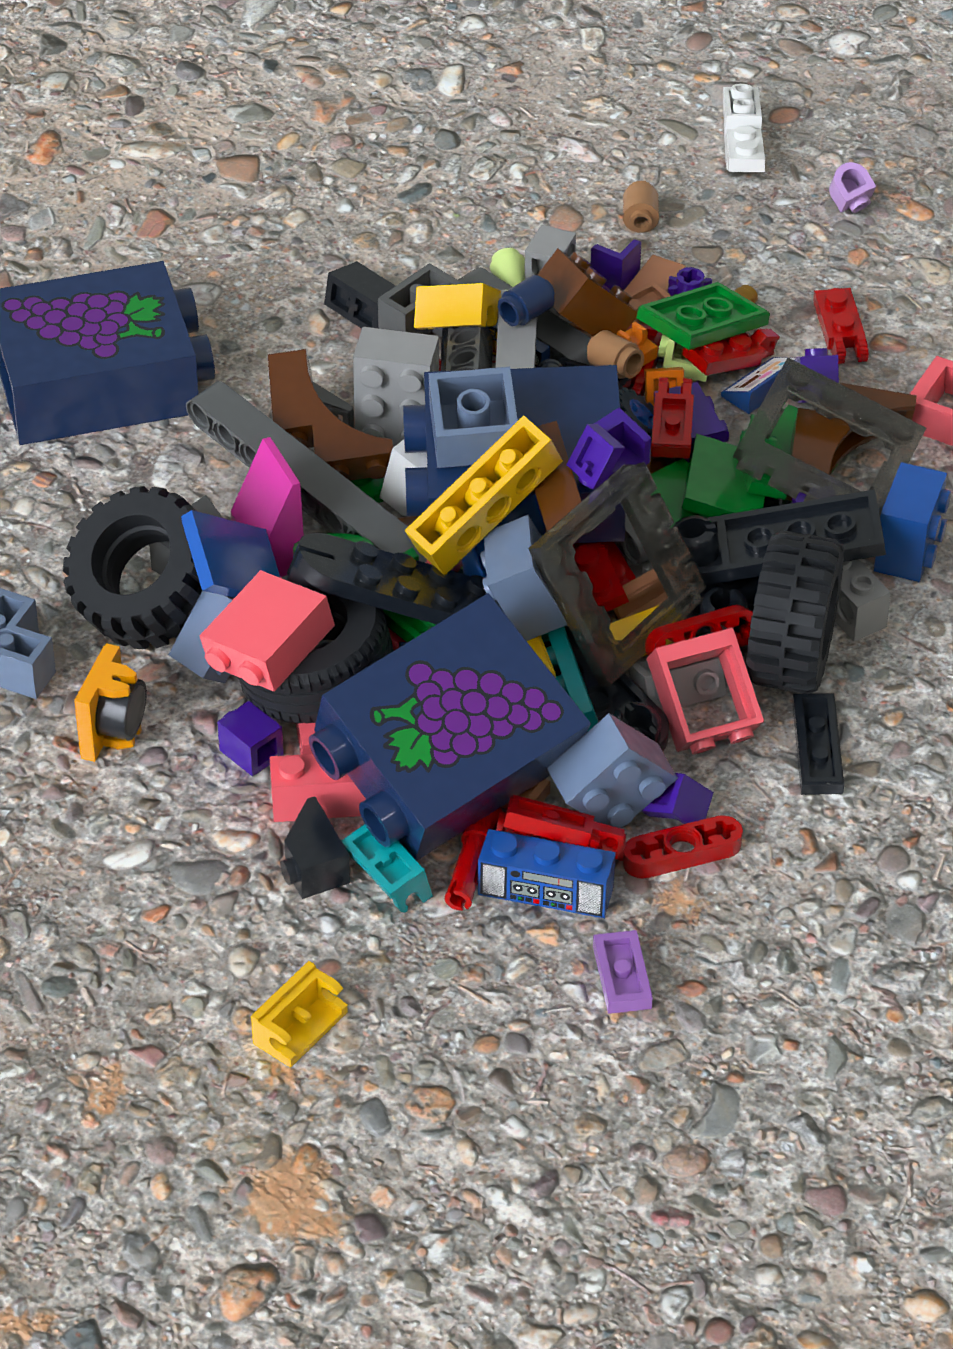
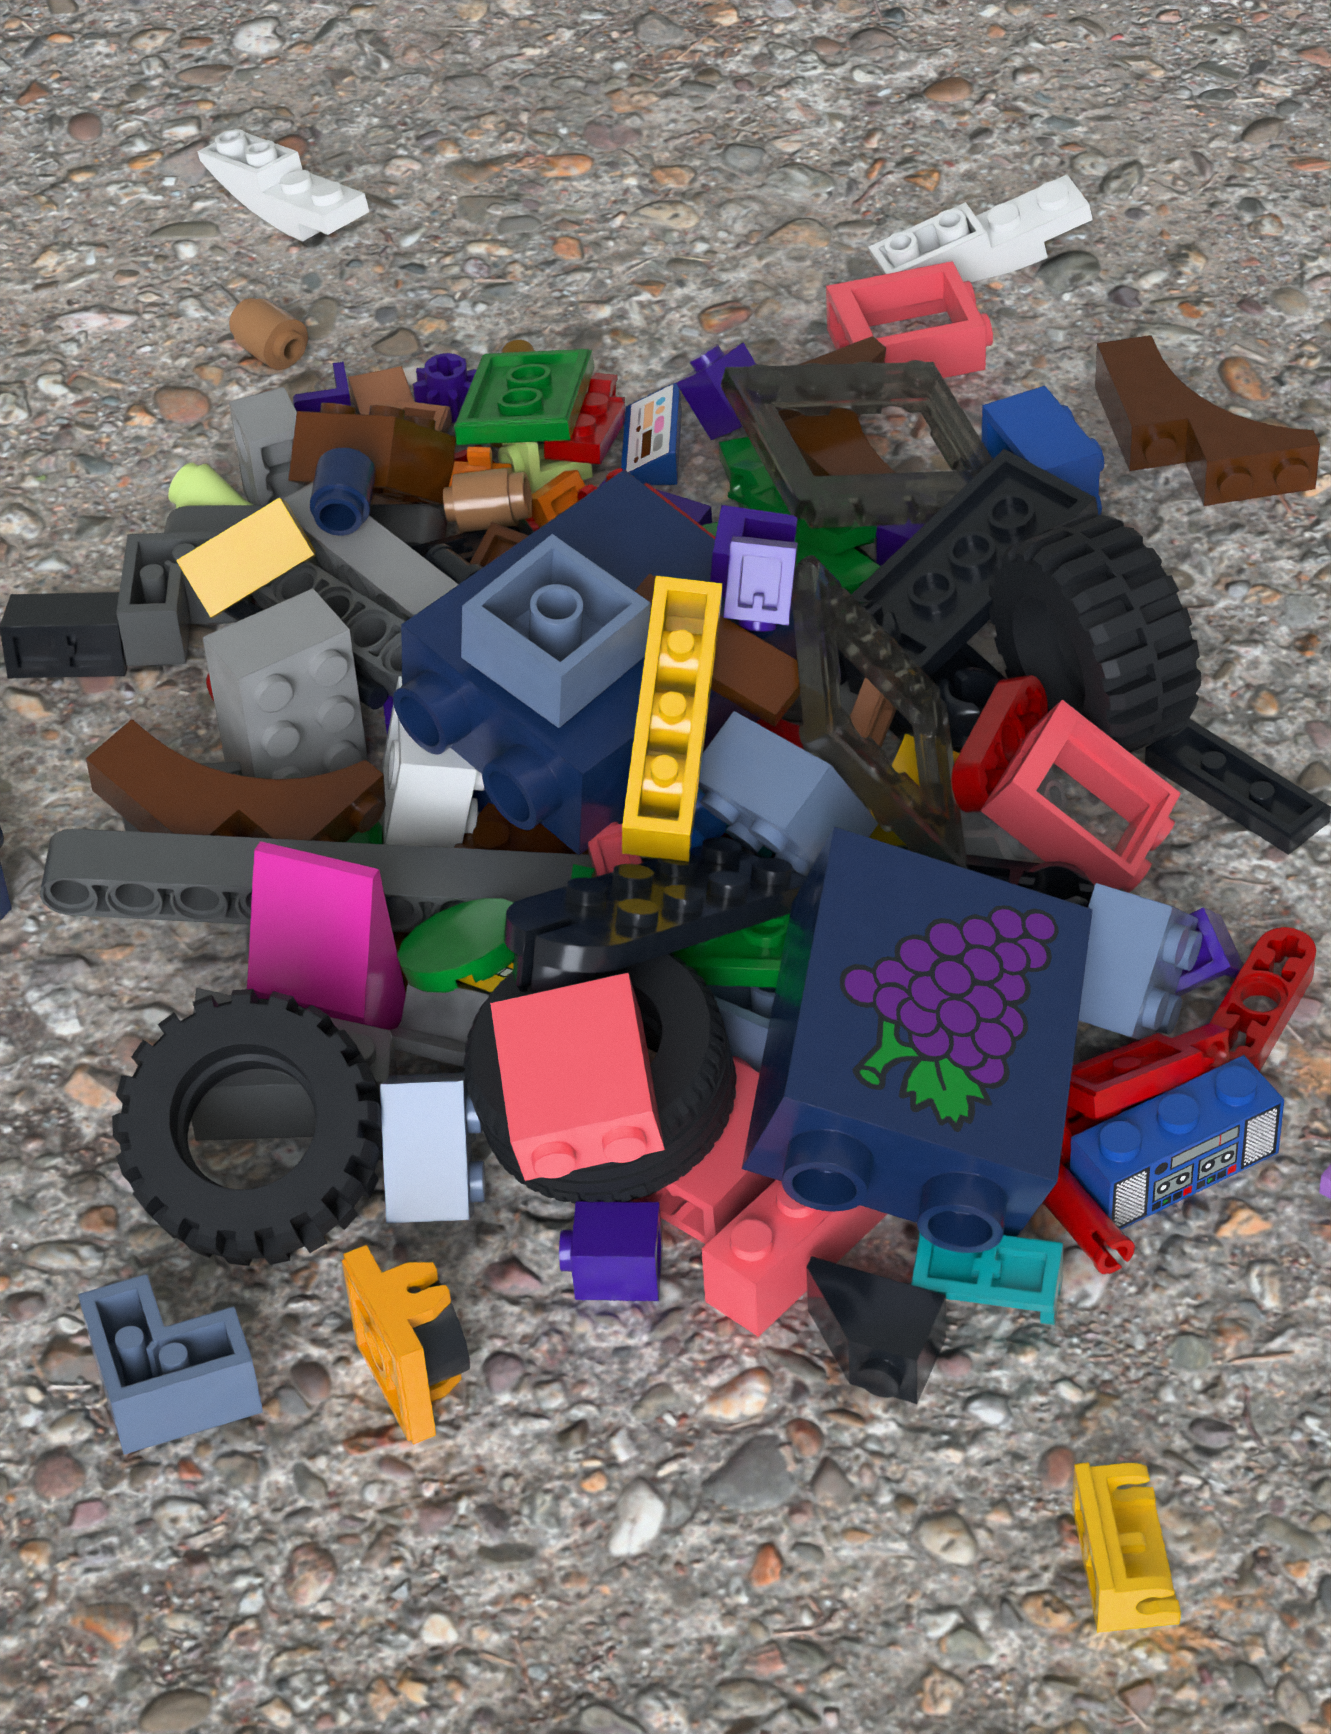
camera: 40 degrees left, 0 degrees up
(227, 552) = (382, 1029): blue tile -> none
(841, 323) = (653, 324): red hinge -> none
(851, 187) = (483, 173): lavender plate -> none

